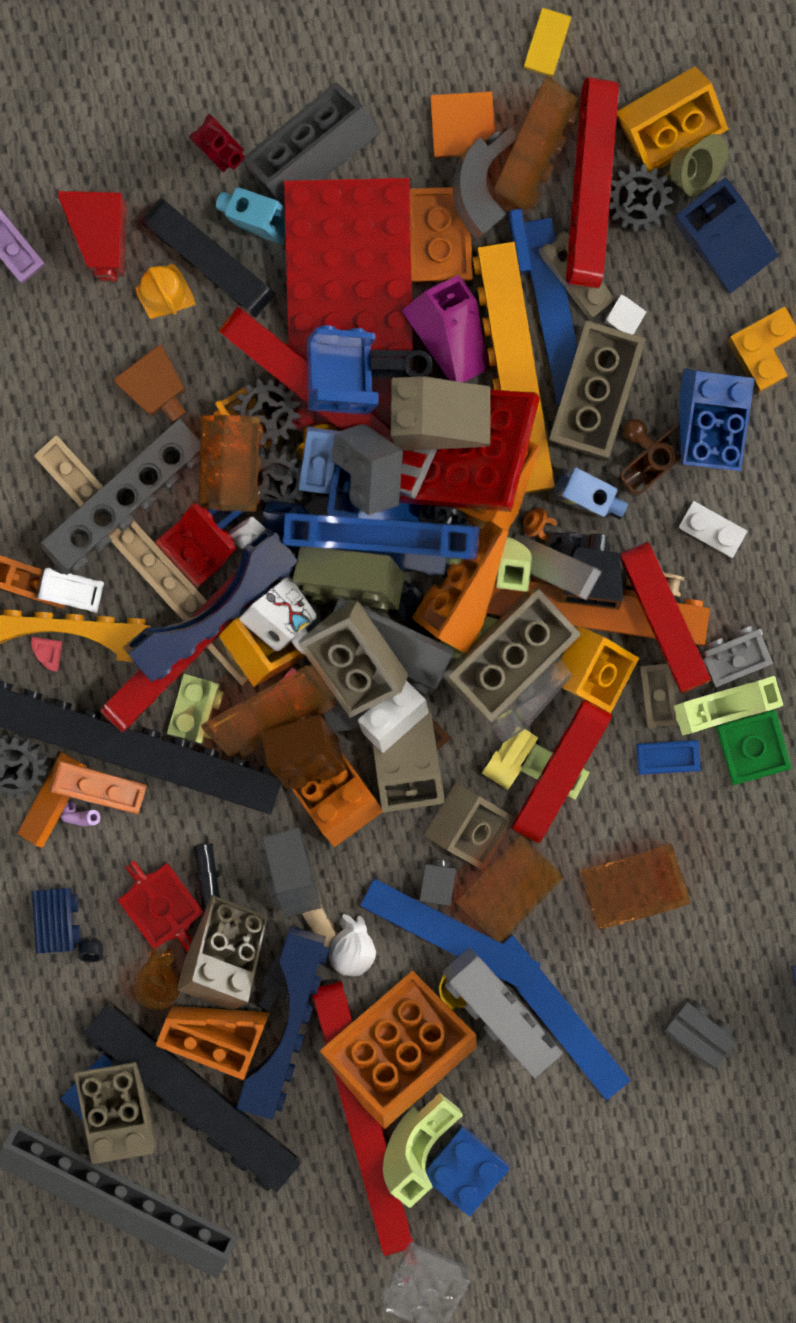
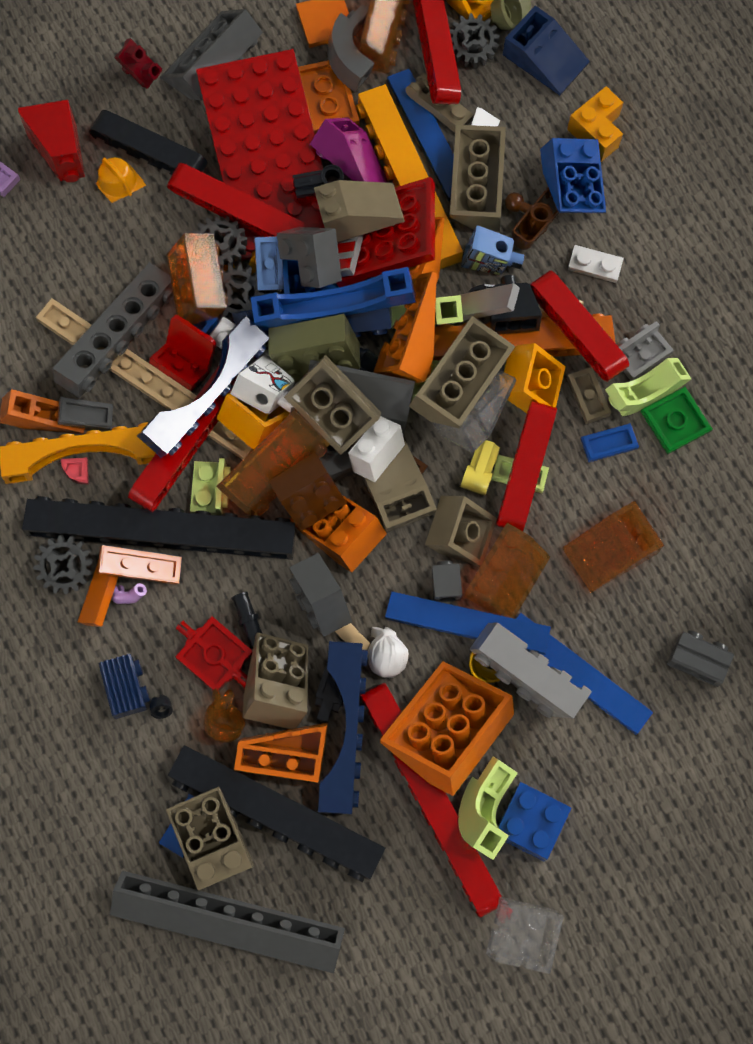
camera: 15 degrees left, 15 degrees down
(154, 385) = (123, 245): dark orange torso -> none
(254, 214) = (179, 105): medium azure torso -> none
(340, 371) = (271, 191): blue panel -> none
(519, 237) = (384, 77): blue tile -> none
(535, 522) = (454, 283): orange plate -> none

